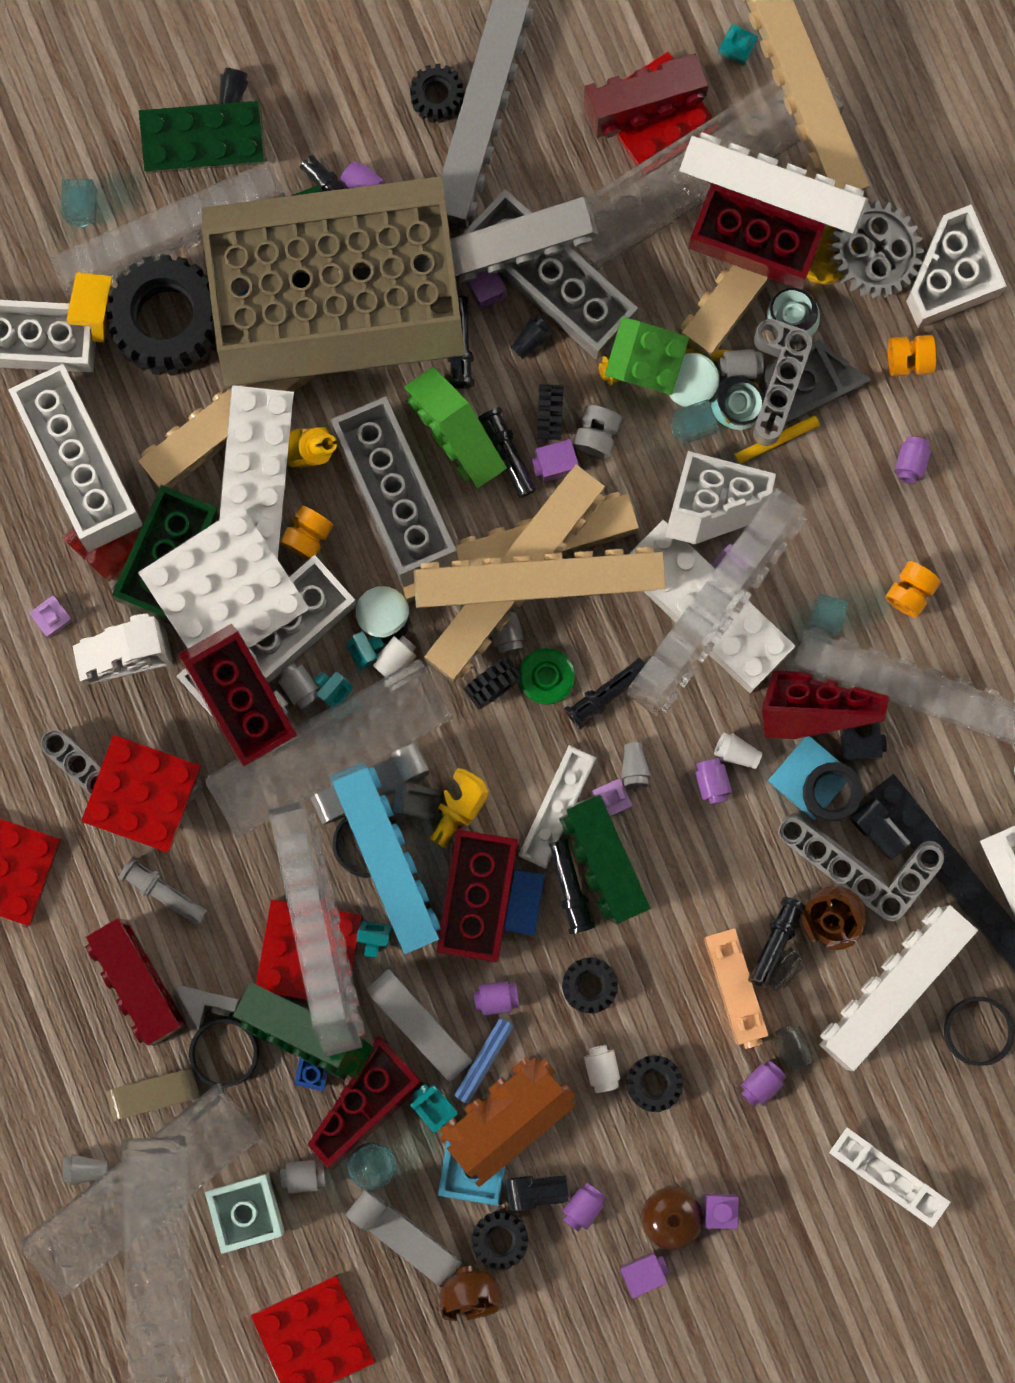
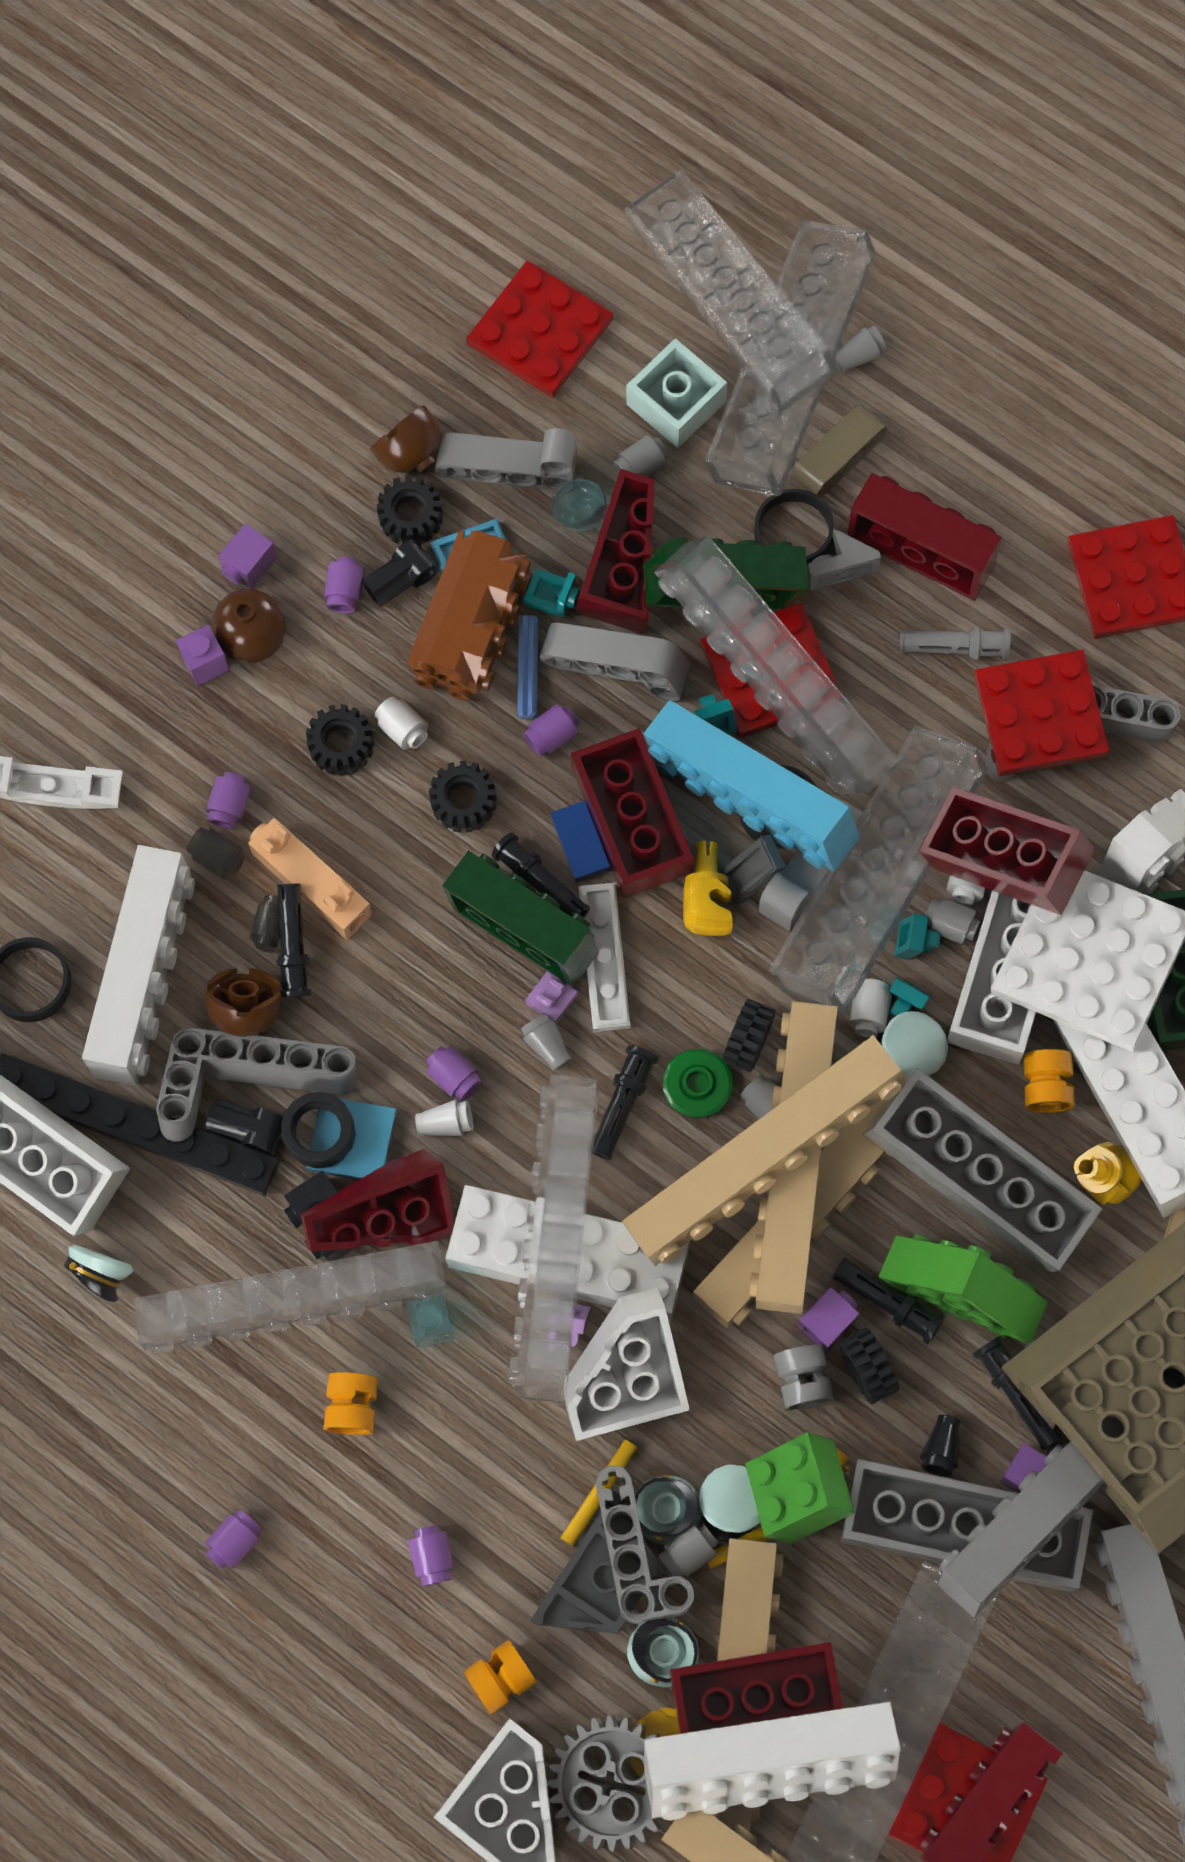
camera: 150 degrees right, 10 degrees down
(693, 422) = (702, 1452): clear light blue brick -> none

